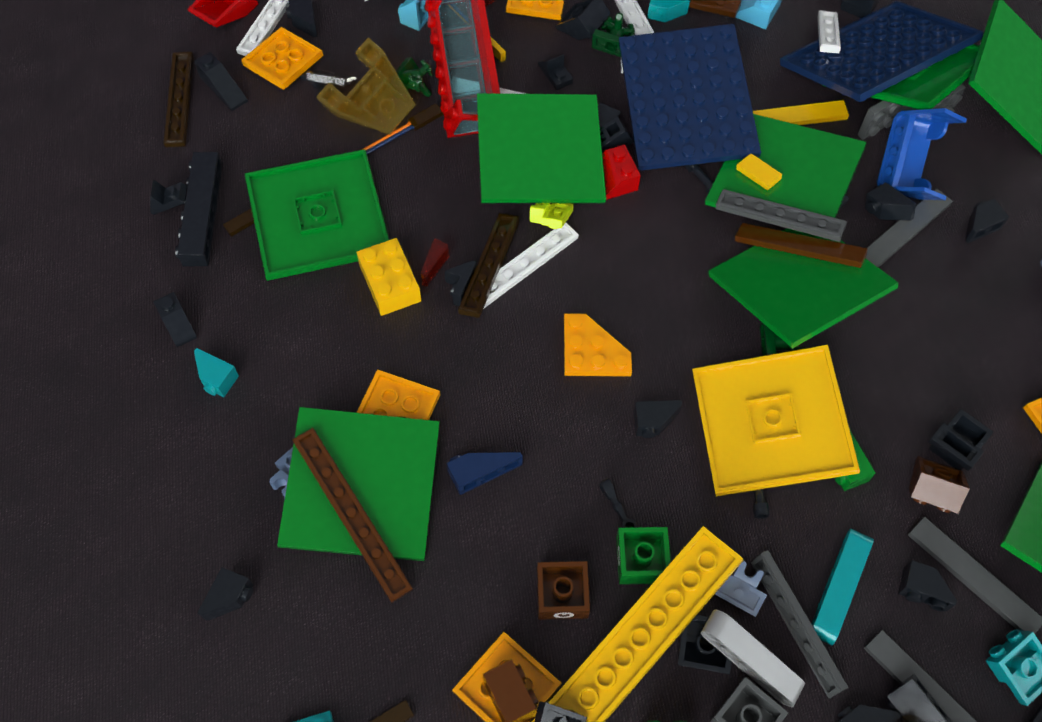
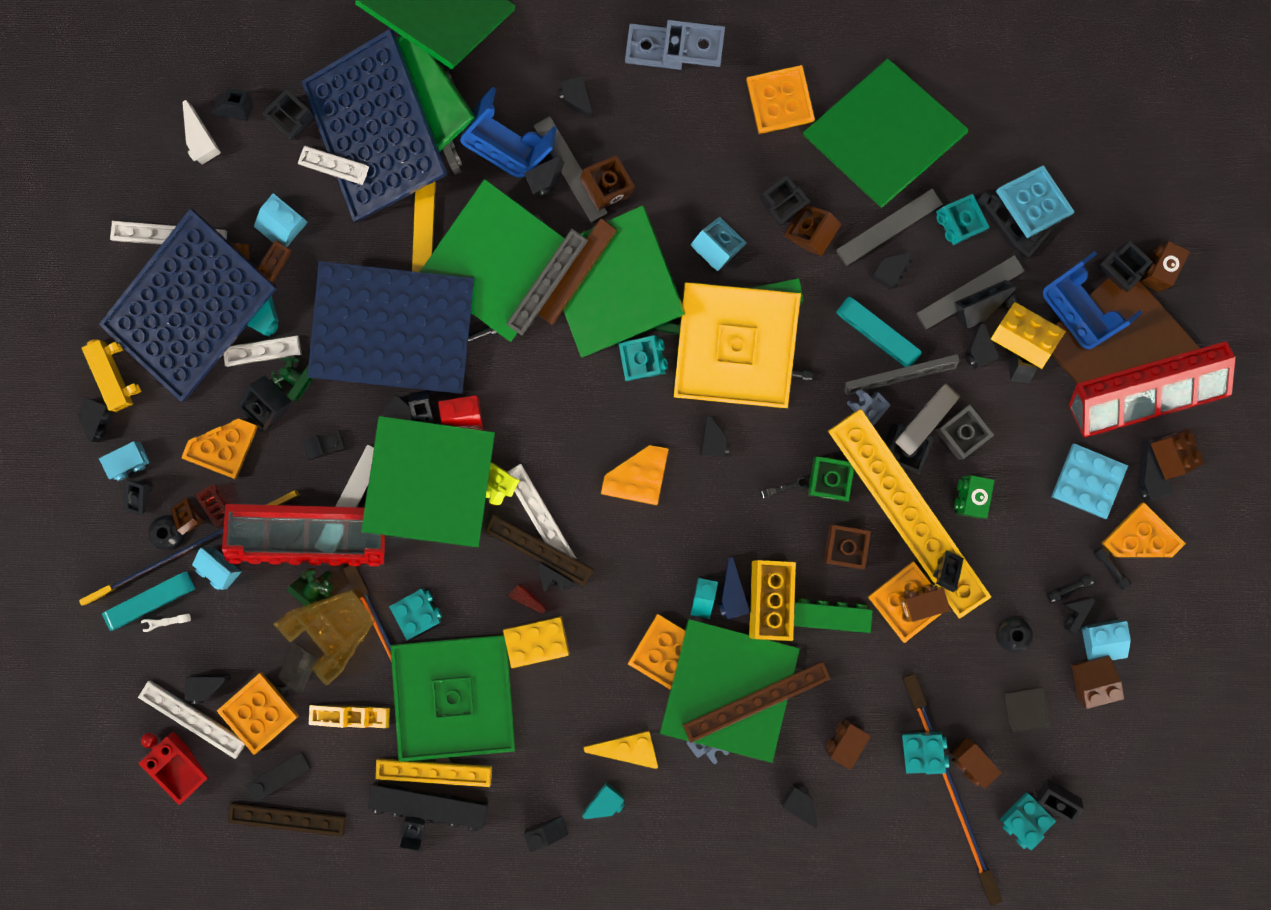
camera: 75 degrees left, 25 degrees up
(235, 210) = (434, 772): none -> yellow tile
(279, 394) = (631, 748): none -> yellow wing
(287, 130) = (349, 716): none -> yellow slope
(310, 633) = (847, 743): none -> reddish brown brick
(401, 169) = (416, 613): none -> teal plate
(468, 437) = (704, 597): none -> teal slope
(470, 591) = (832, 616): none -> green brick
(478, 509) = (772, 600): none -> yellow brick
(727, 328) = (643, 358): none -> teal plate
(759, 171) = (494, 286): yellow tile -> none
(882, 383) = (718, 243): none -> medium azure slope
(906, 257) = (607, 183): none -> reddish brown brick

